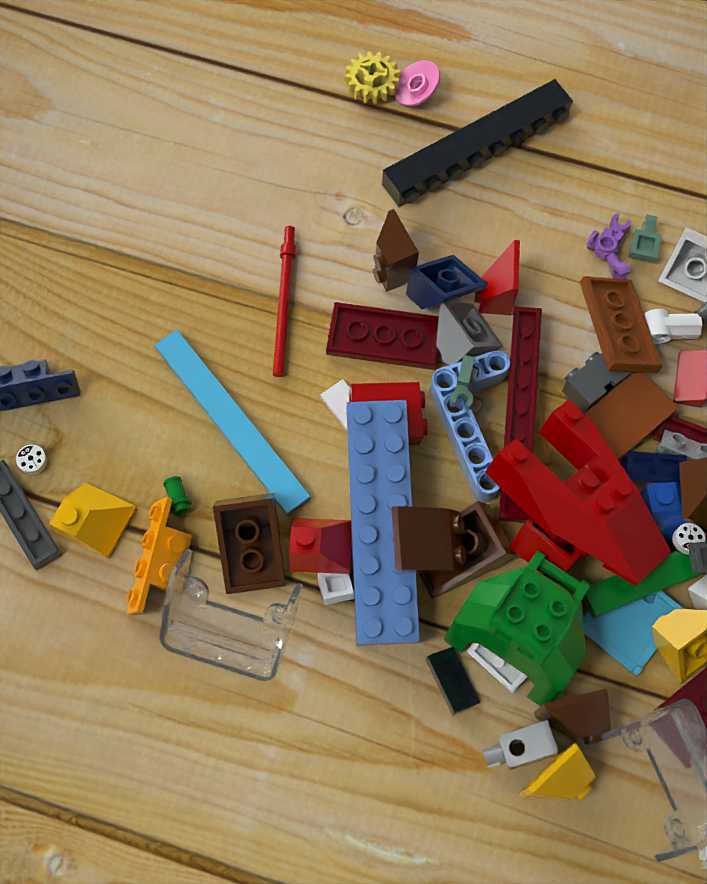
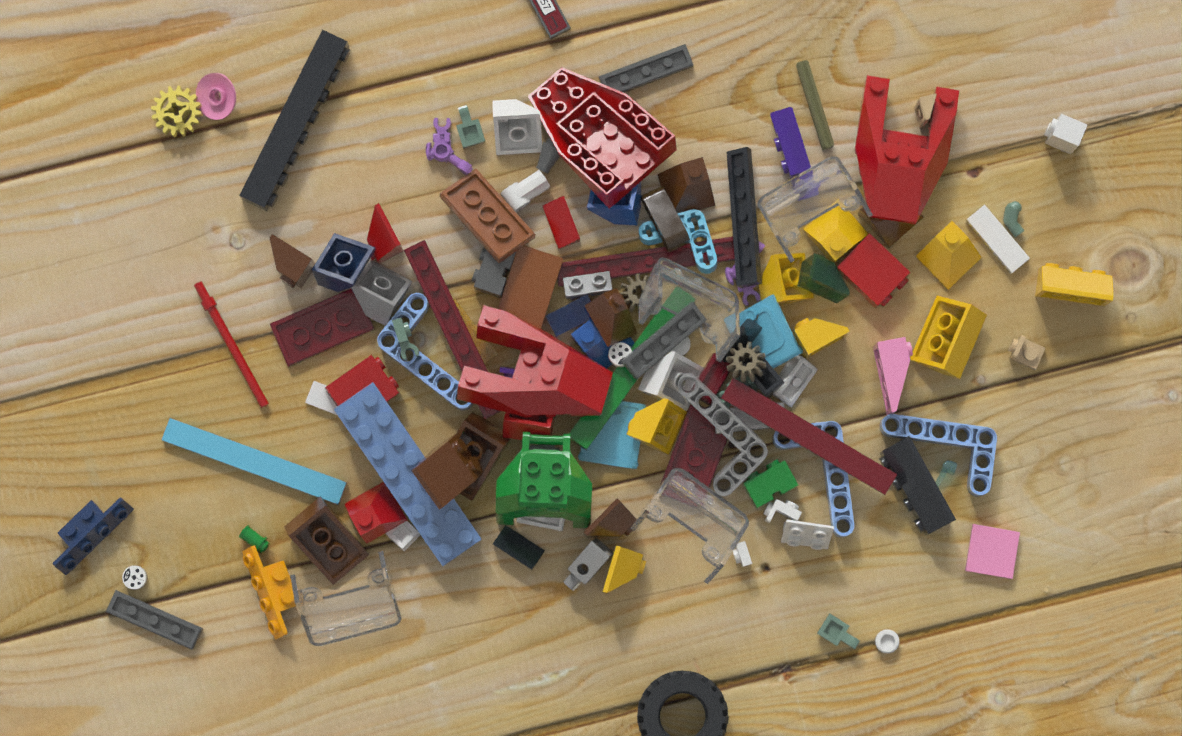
camera: 30 degrees left, 15 degrees up
(92, 519) = (208, 590): yellow slope -> none

